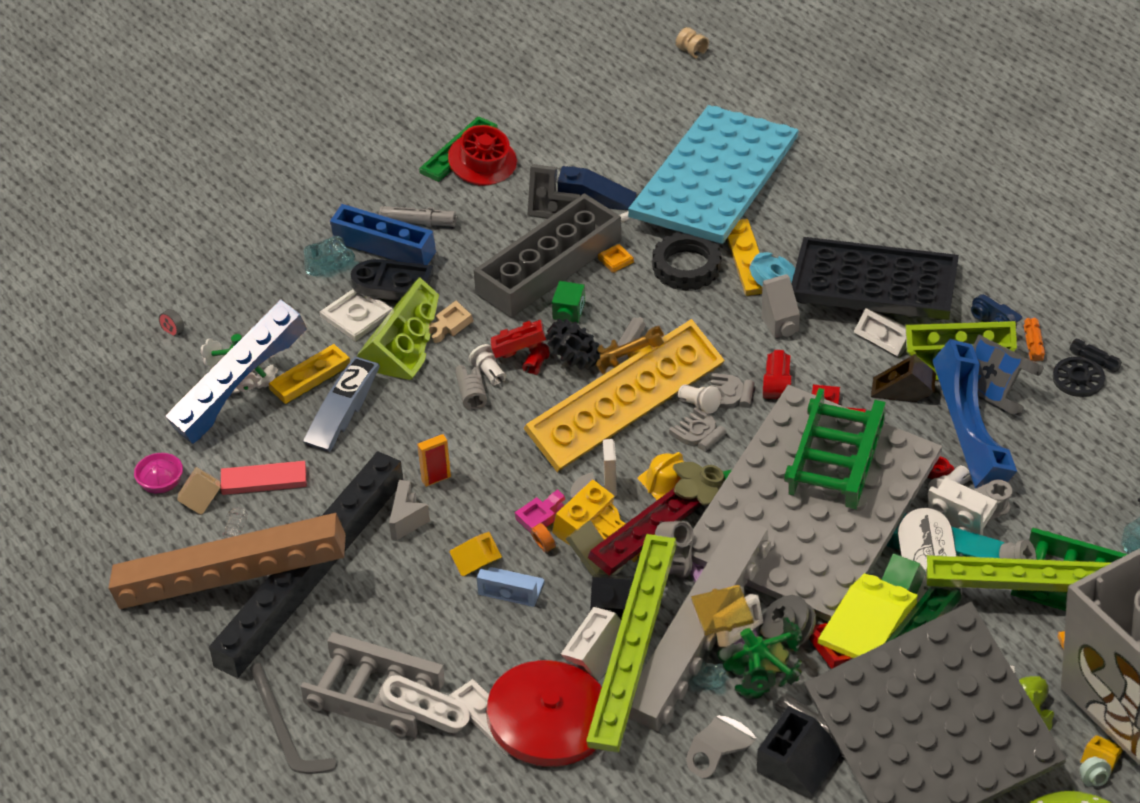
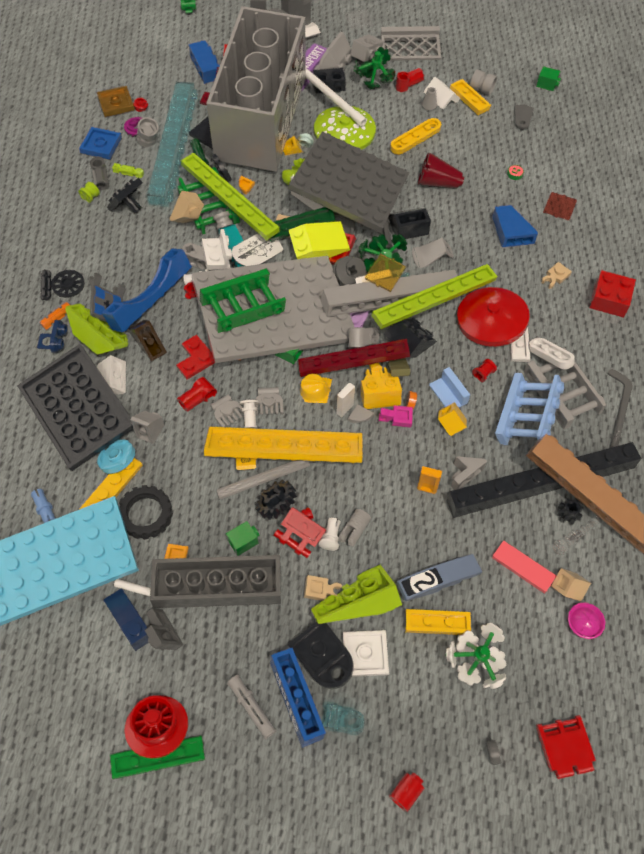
camera: 140 degrees left, 15 degrees up
(105, 369) = (566, 747): none -> red plate
(200, 407) = (458, 632): arch -> none
(226, 252) = (407, 791): none -> red brick
(407, 597) = (515, 400): none -> light blue fence
(492, 635) = (484, 370): none -> red bush
(594, 642) = (444, 324): white panel -> none
(614, 351) = (265, 473): pearl gold bar -> none
(698, 481) = (311, 359): olive plate -> none
(781, 204) = (43, 506): none -> medium blue pin
(904, 573) = (280, 248): green brick -> none
(1067, 519) = (187, 207): none -> tan slope

